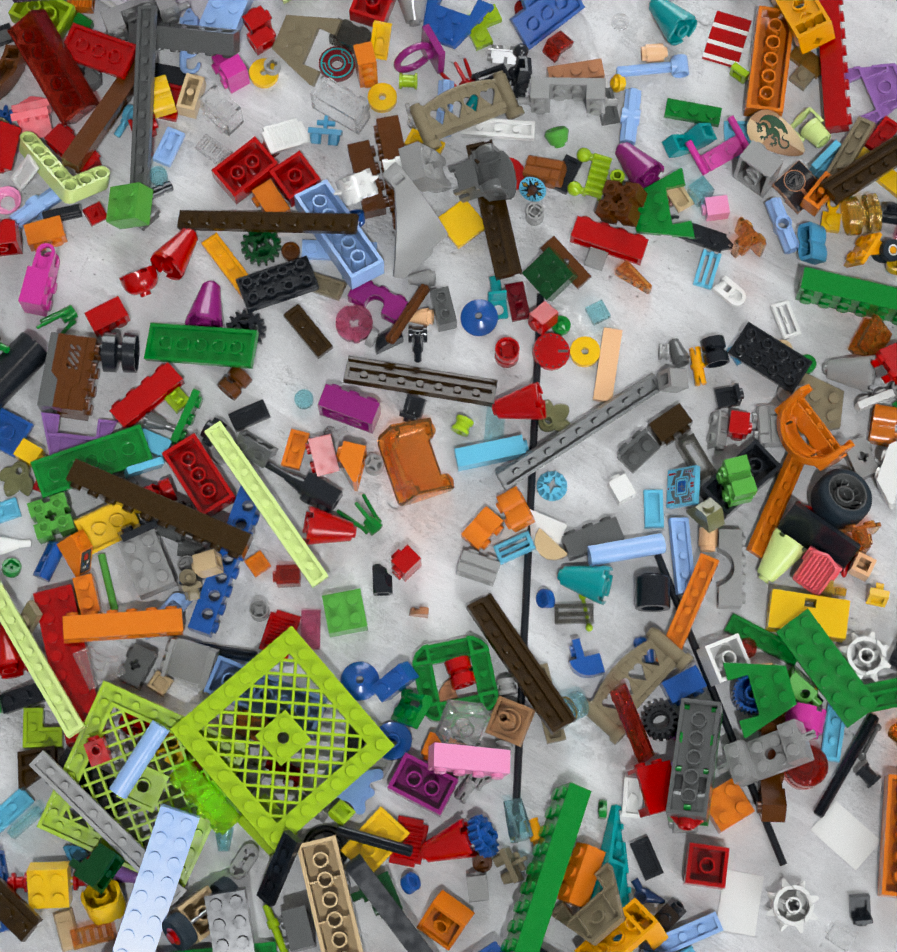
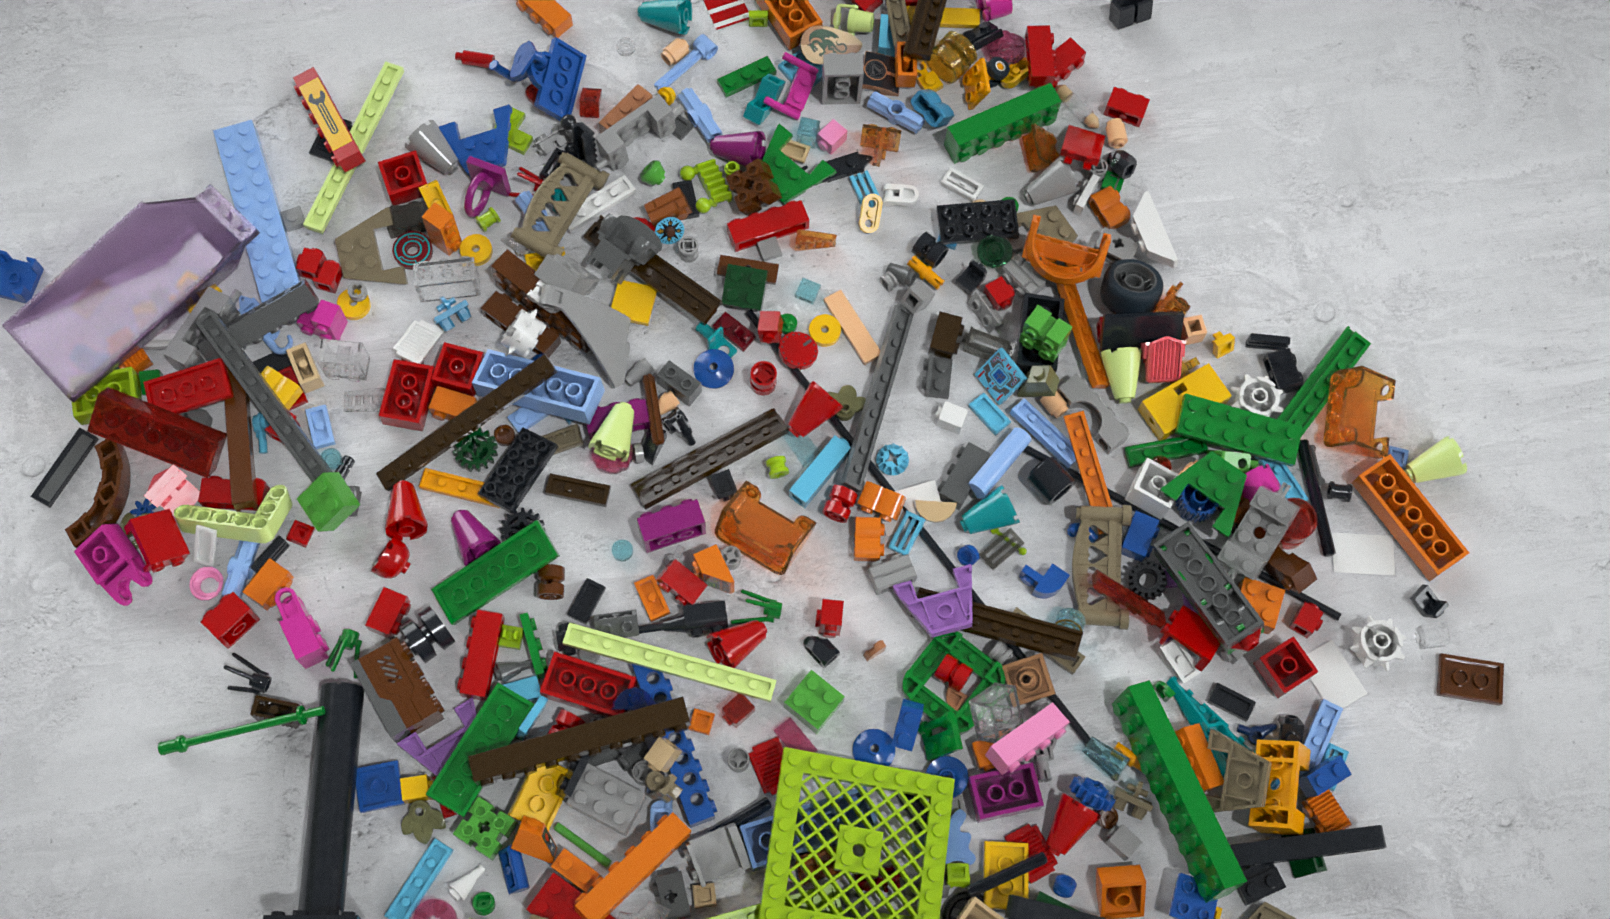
camera: 45 degrees left, 5 degrees down
(219, 509) = (632, 699): none -> clear blue plate
(364, 310) = (615, 433): none -> yellowish green cone
(490, 485) = (839, 506): none -> red wheel
(490, 623) = (942, 611): none -> medium lavender wing
(694, 289) = (871, 214): none -> yellow plate
(755, 846) = (1307, 619): none -> red brick
(761, 389) = (994, 251): none -> clear green hat

